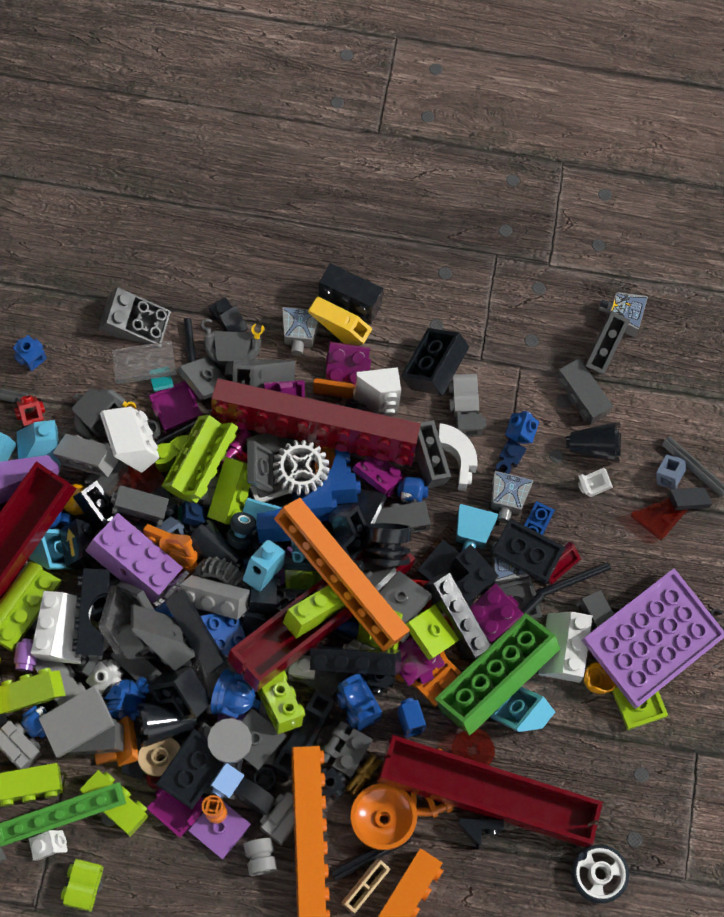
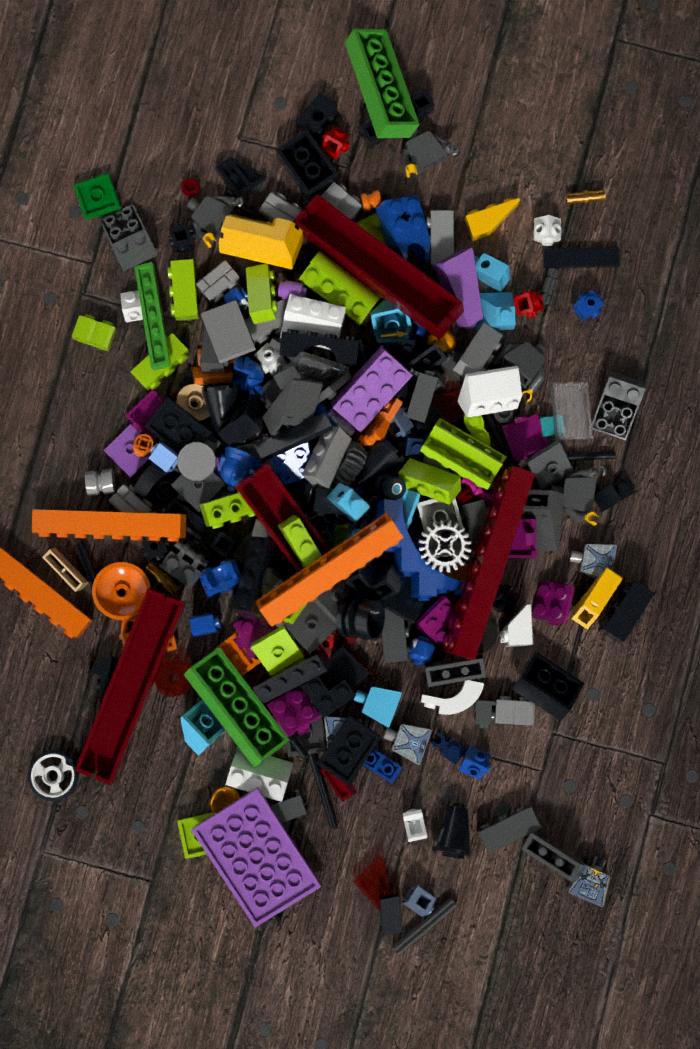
camera: 100 degrees right, 15 degrees up
(260, 467) = (446, 507): dark grey plate -> none
(333, 388) = (532, 587): orange slope -> none

